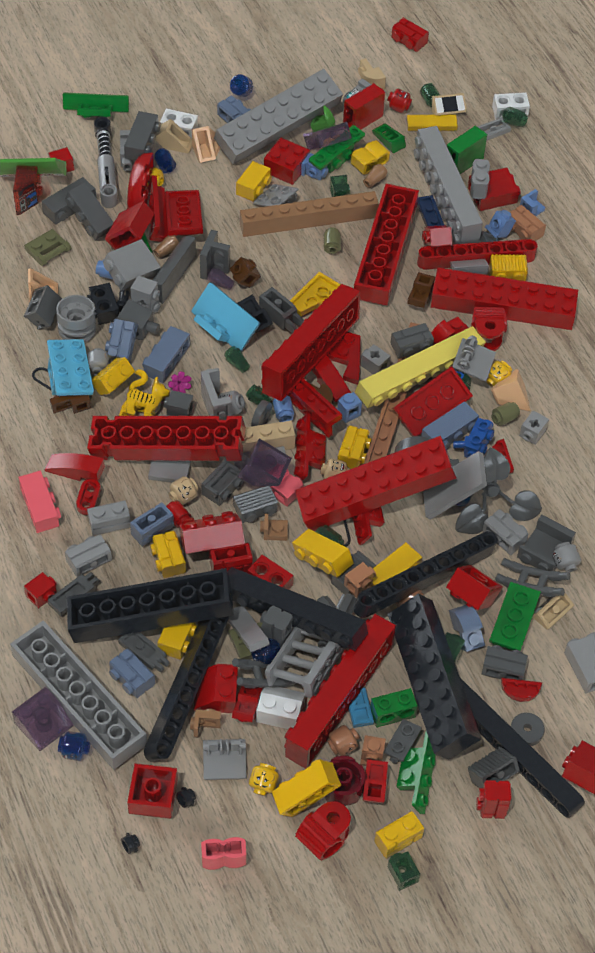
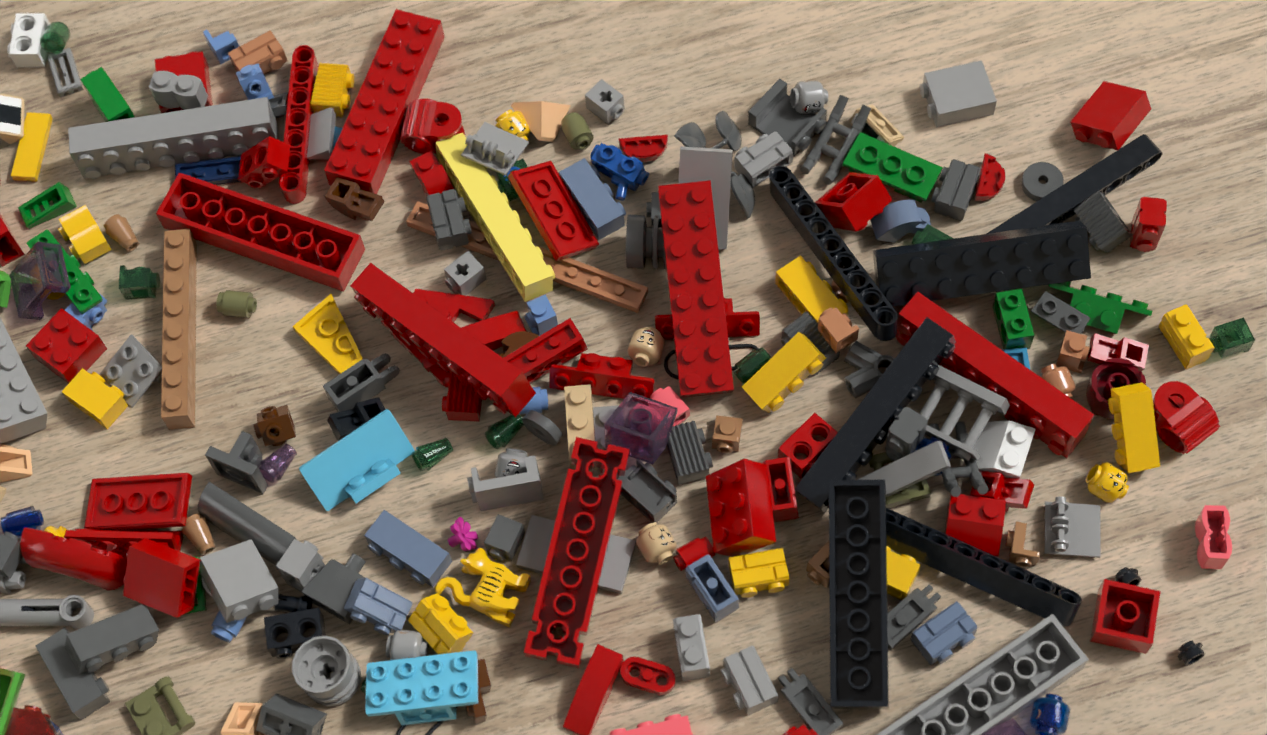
camera: 75 degrees left, 10 degrees up
(354, 446) = (609, 318): yellow brick -> none

